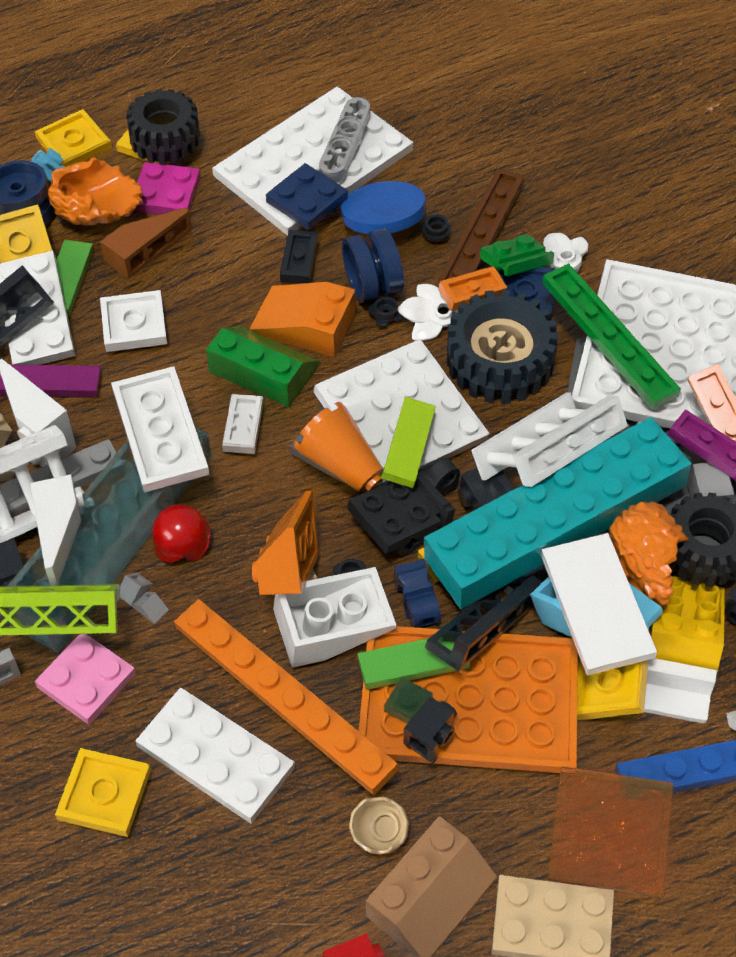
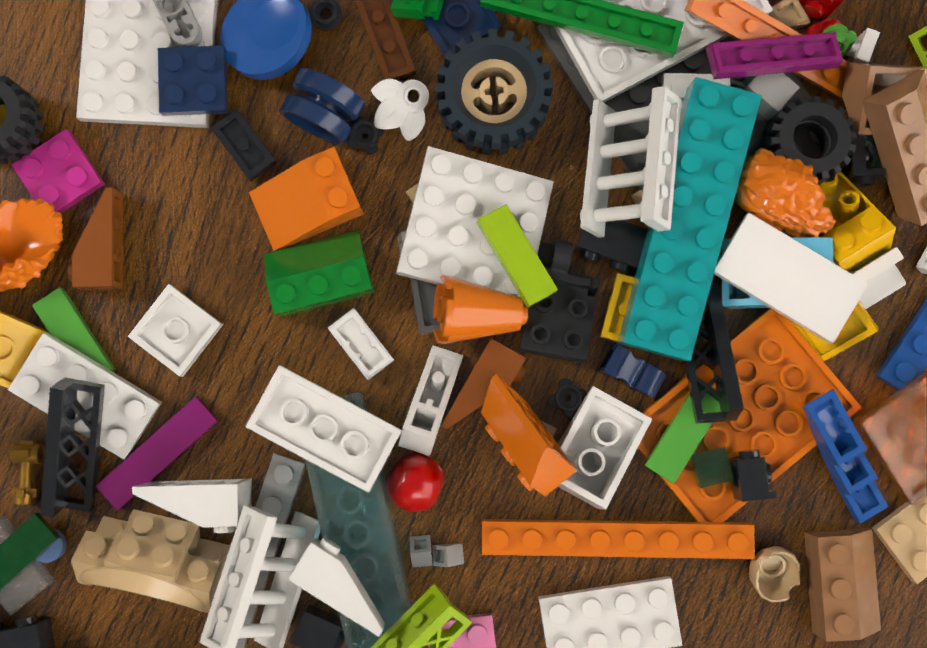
camera: 45 degrees left, 30 degrees up
(242, 494) = (430, 400): none -> white slope
(328, 505) = (494, 360): none -> dark orange slope
(465, 286) = (422, 57): orange plate -> none
(524, 789) = (844, 456): none -> blue slope

